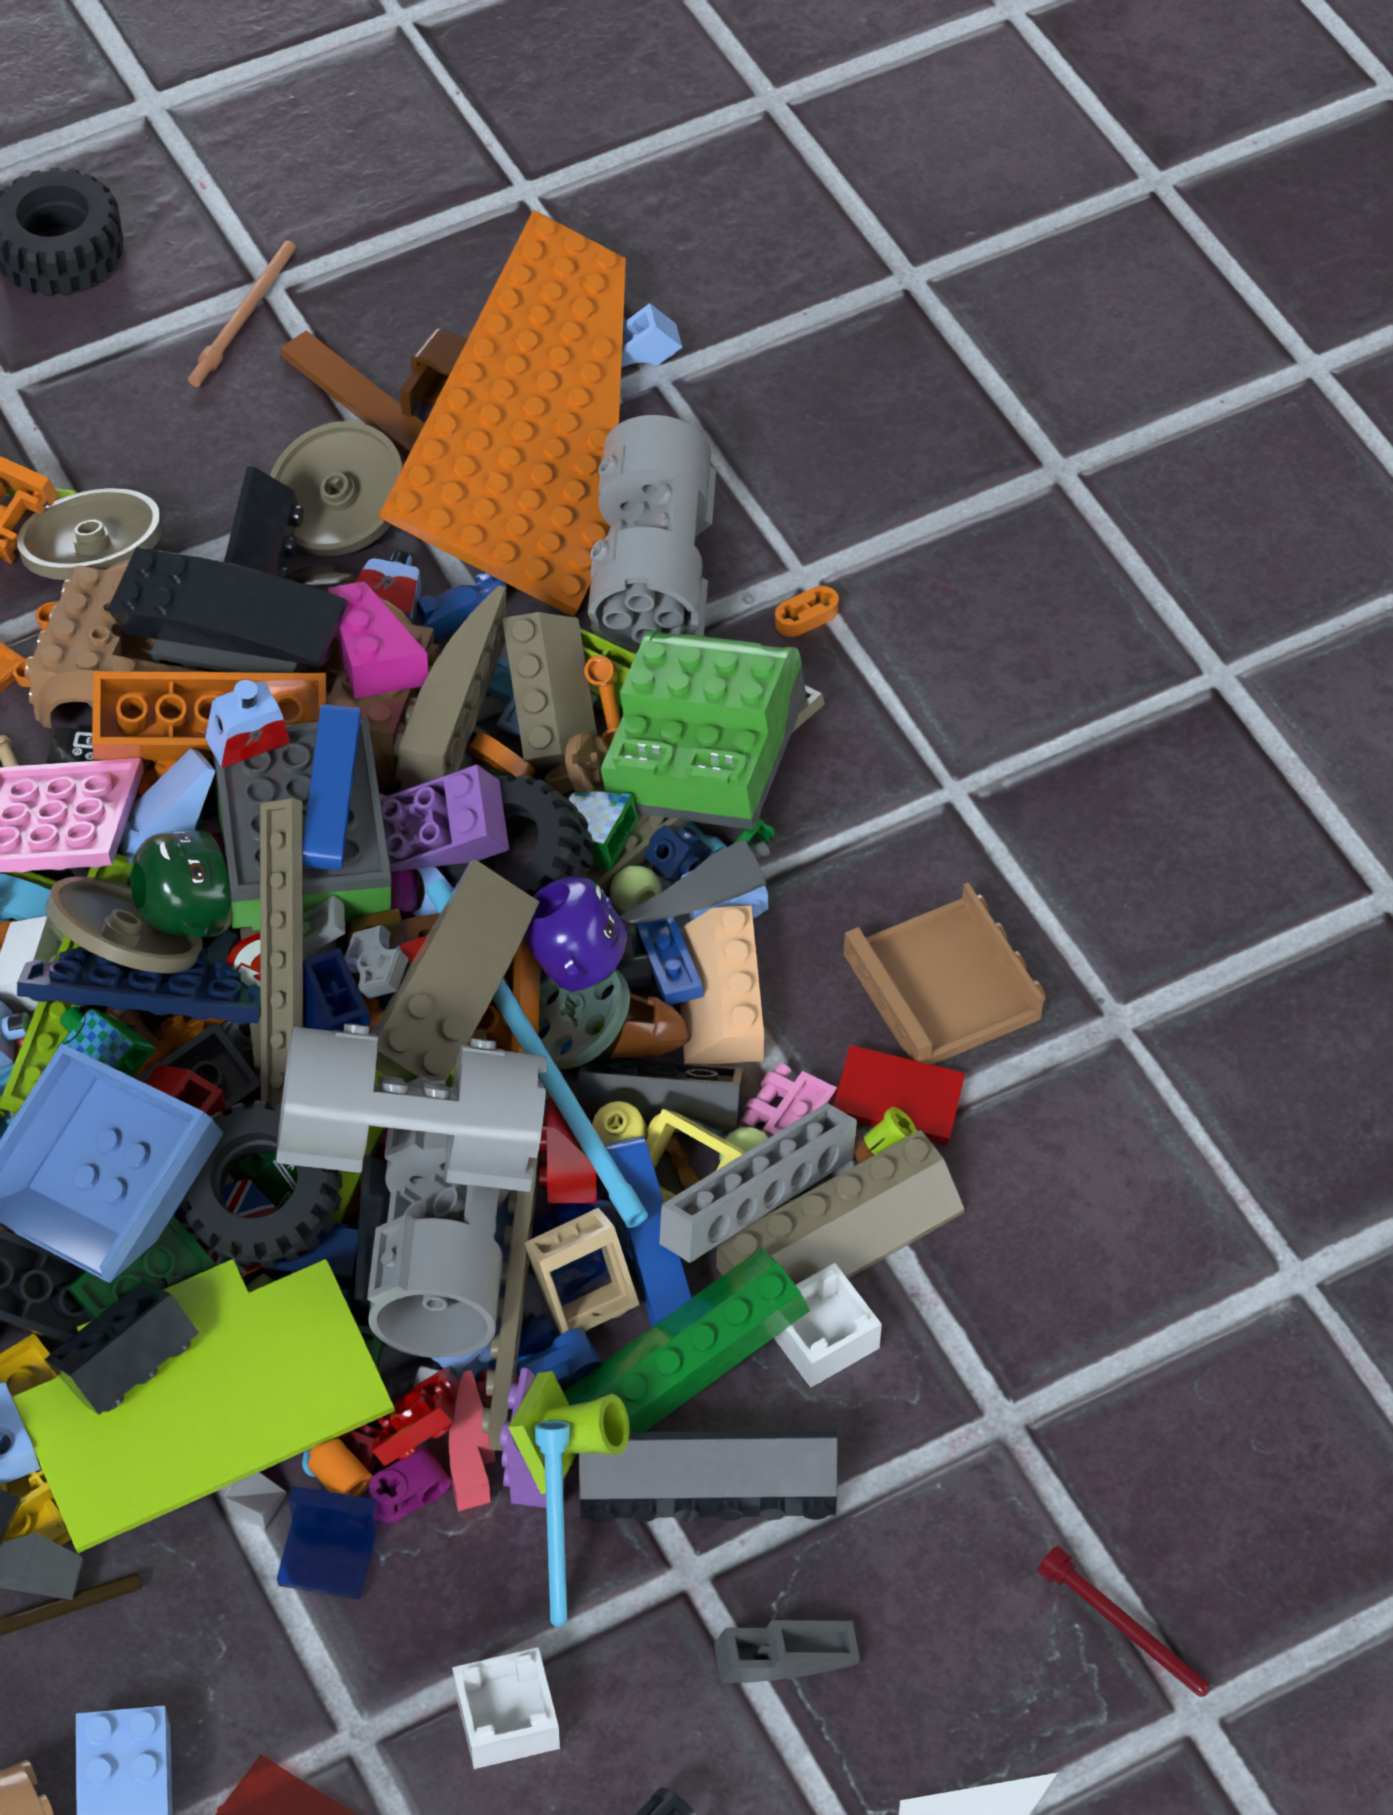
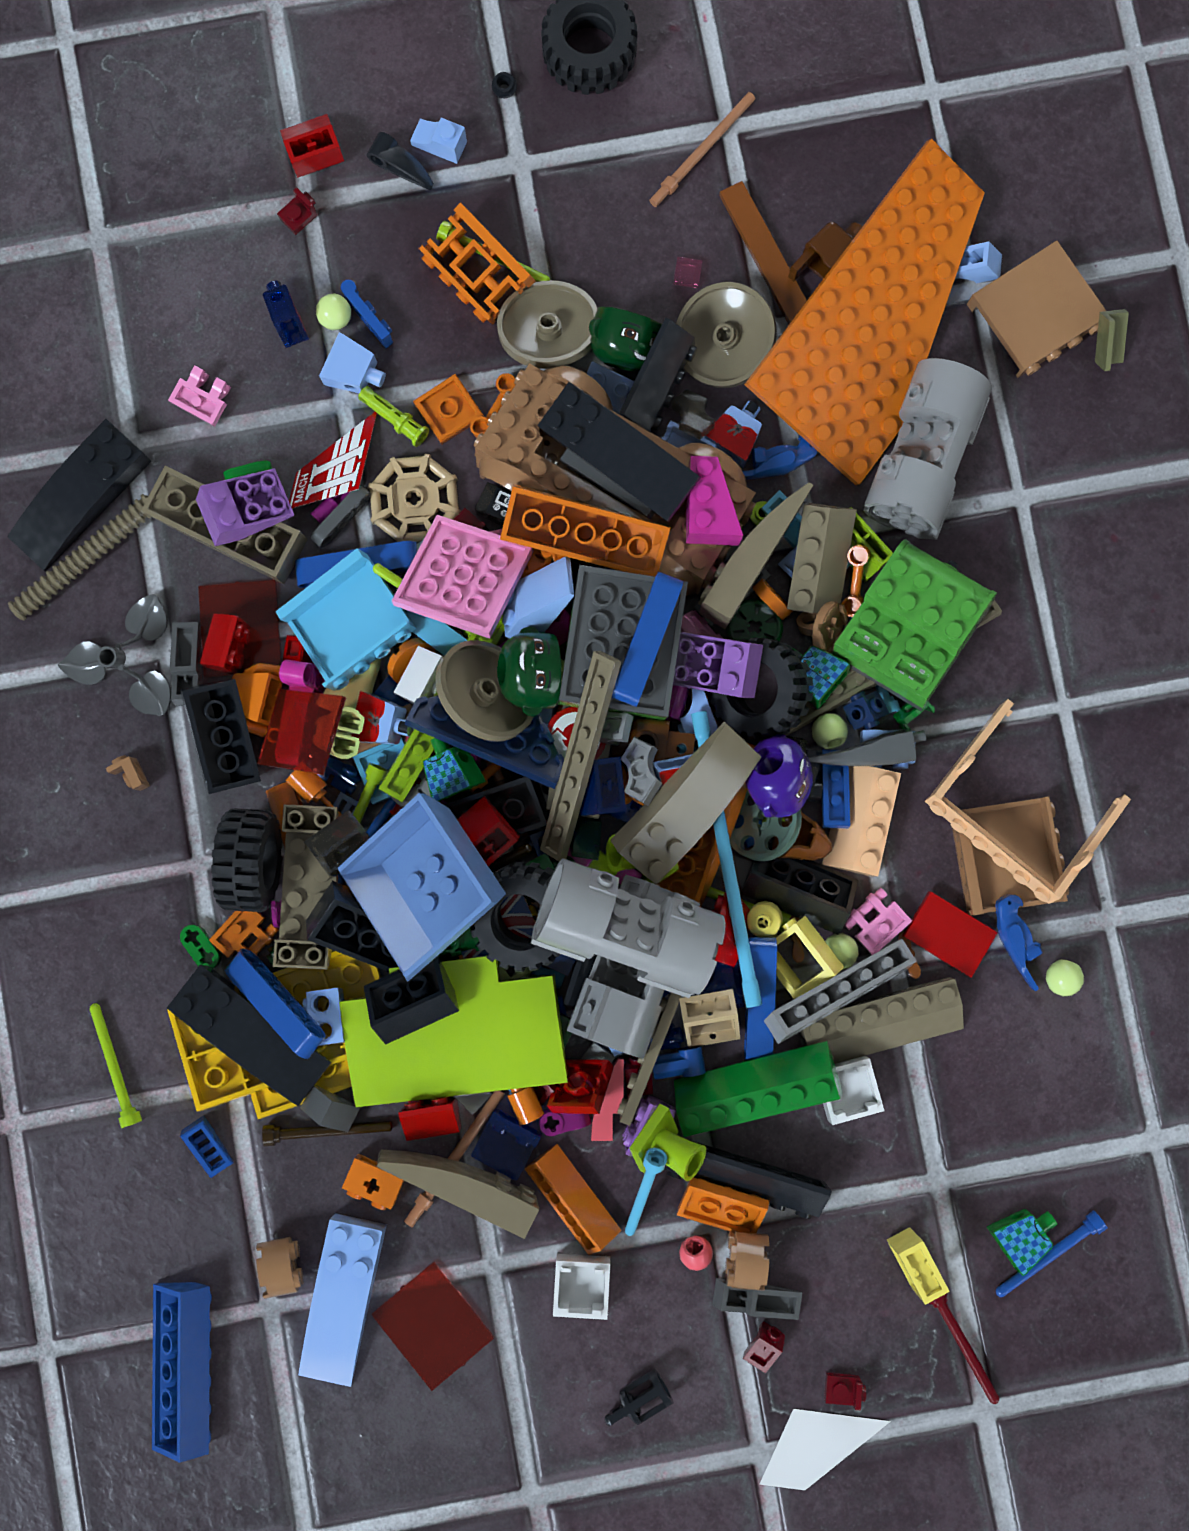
camera: 20 degrees right, 30 degrees up
(155, 1654) = (358, 1183): none -> orange brick
(194, 512) = (622, 337): none -> dark green piece
(197, 1534) = (430, 1118): none -> red slope
(222, 1665) = (424, 1199): none -> nougat bar
(245, 724) = (601, 576): light blue torso -> none
(264, 442) = (687, 272): none -> clear pink tile
(275, 1601) = (467, 1187): none -> dark tan slope
(453, 1595) = (573, 1200): none -> orange brick
(669, 1609) = (696, 1252): none -> coral piece
(687, 1529) = (722, 1207): none -> orange plate
(747, 366) = (1039, 308): none -> medium nougat panel
(750, 1585) = (747, 1261): none -> medium nougat brick
(807, 611) = (1012, 526): orange beam -> none
(821, 1716) = (765, 1347): none -> dark red bracket
(850, 371) = (1111, 338): none -> olive panel
(892, 1128) = (935, 967): lime bush -> none
(915, 955) = (1000, 854): none -> light nougat piece
(968, 1742) = (844, 1390): none -> dark red bracket
(994, 1069) = (1016, 935): none -> blue animal
(1018, 1515) = (918, 1265): none -> light yellow window
(1080, 1097) = (1064, 977): none -> yellowish green piece
(1153, 1448) = (1023, 1238): none -> torso
(1251, 1403) = (1091, 1225): none -> blue piece

